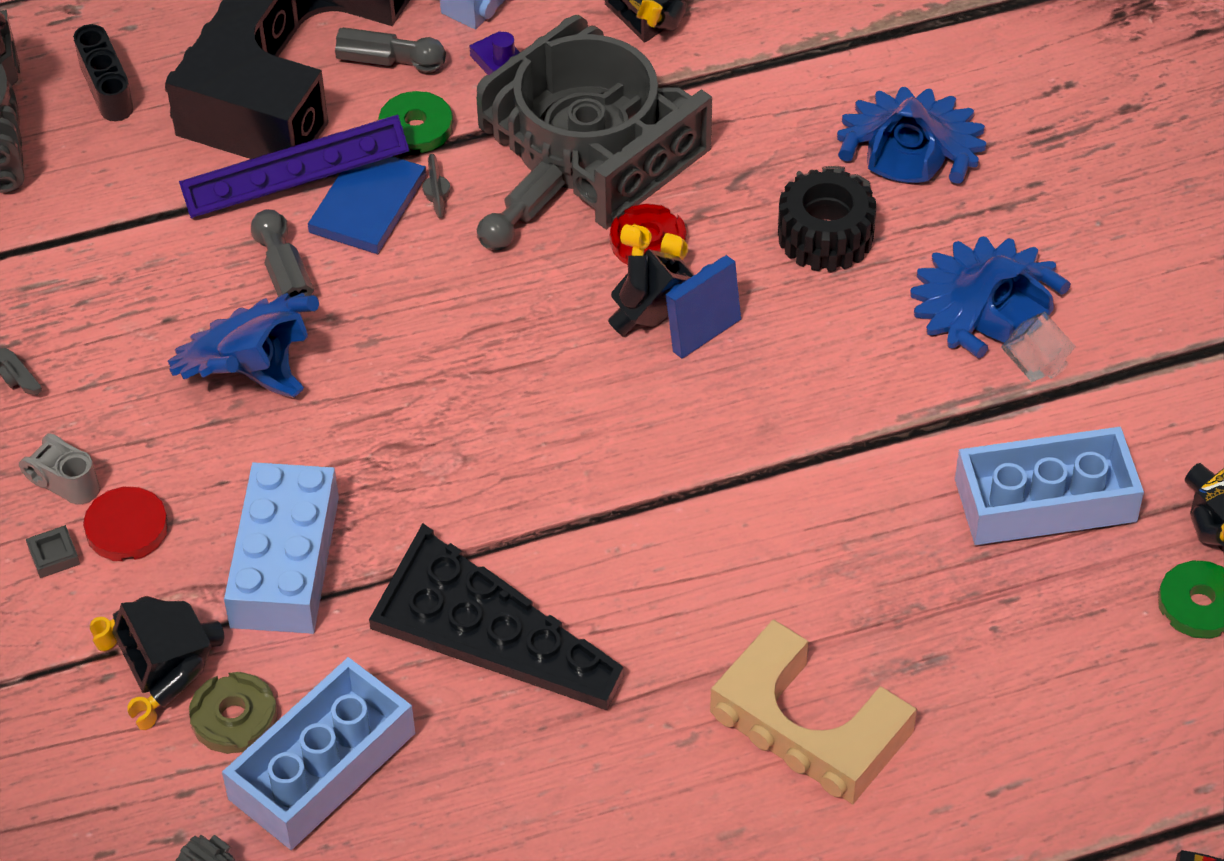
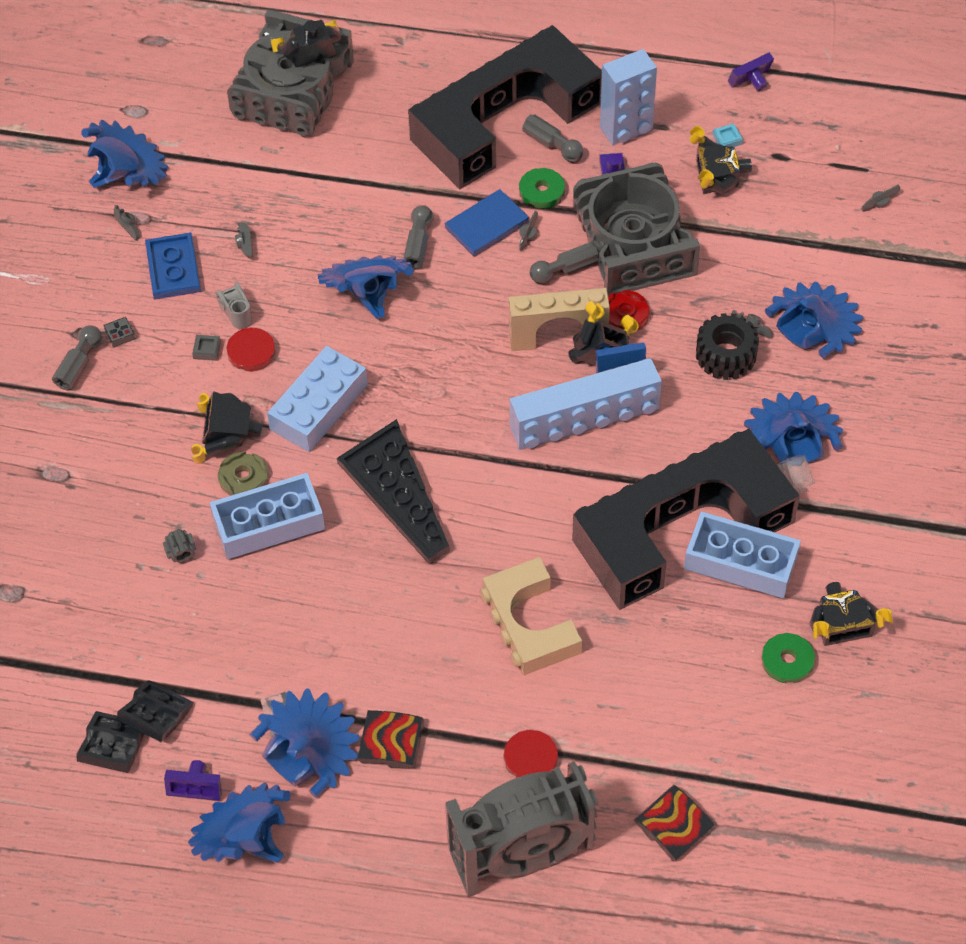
camera: 30 degrees right, 5 degrees up
(103, 72) = (390, 86): black beam -> none
(294, 166) = (456, 186): dark purple tile -> none
(533, 283) = (531, 311): none -> tan arch
(687, 380) = (585, 404): none -> light blue brick
(859, 534) = (726, 475): none -> black arch

